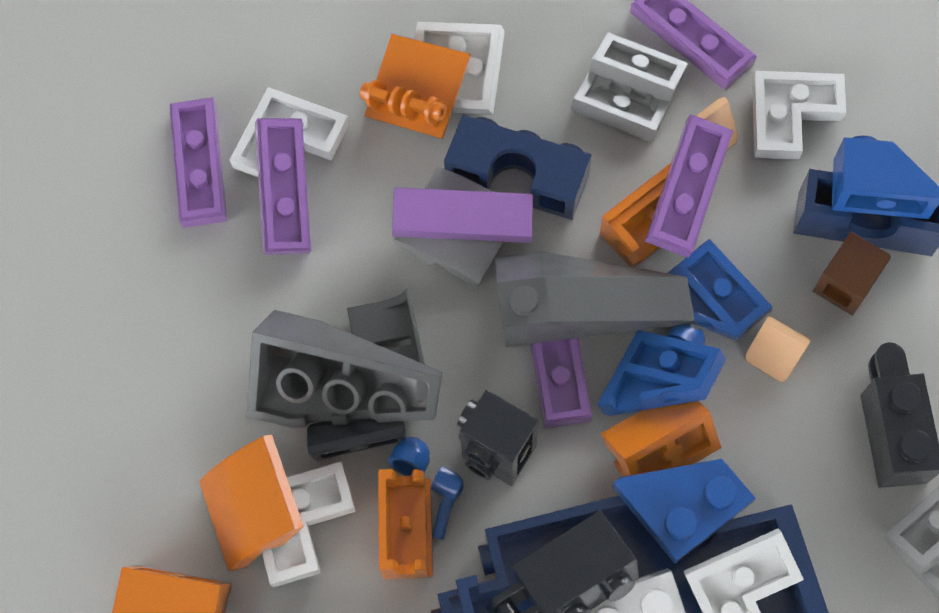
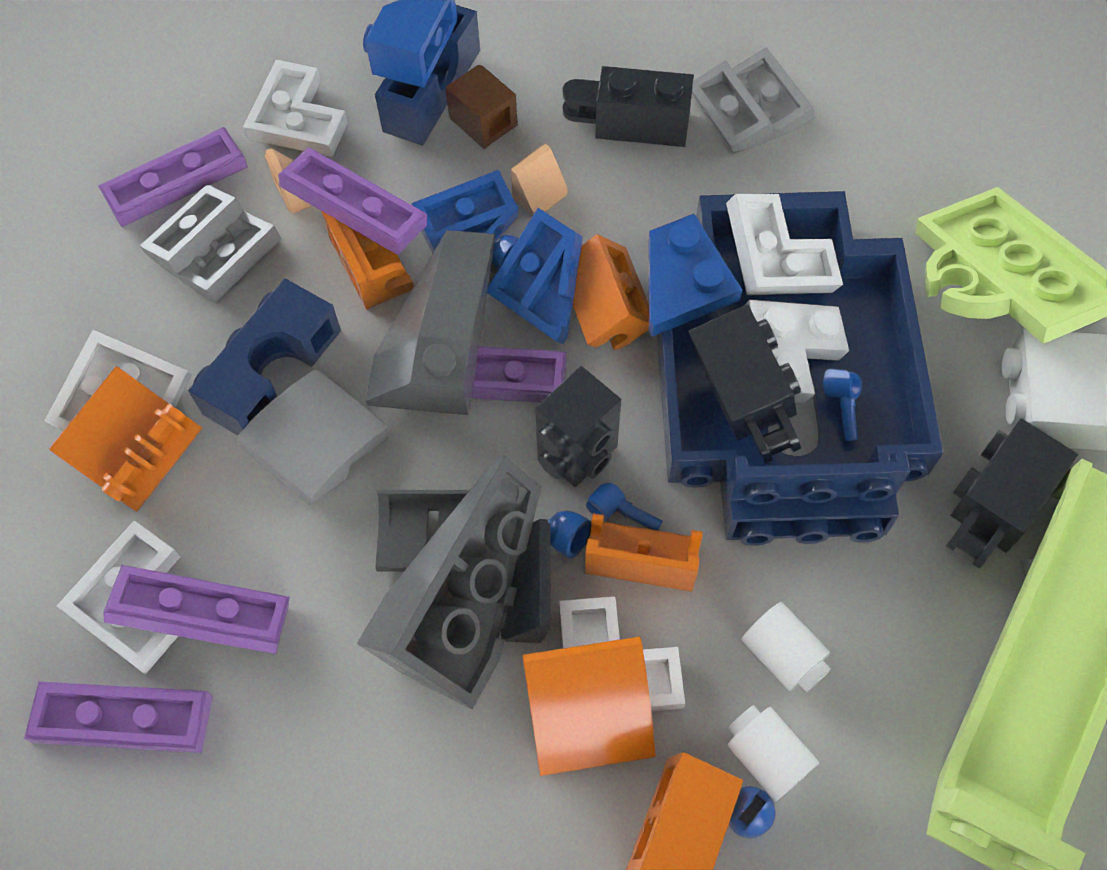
camera: 80 degrees left, 5 degrees down
(462, 215) = (307, 420): medium lavender tile -> none

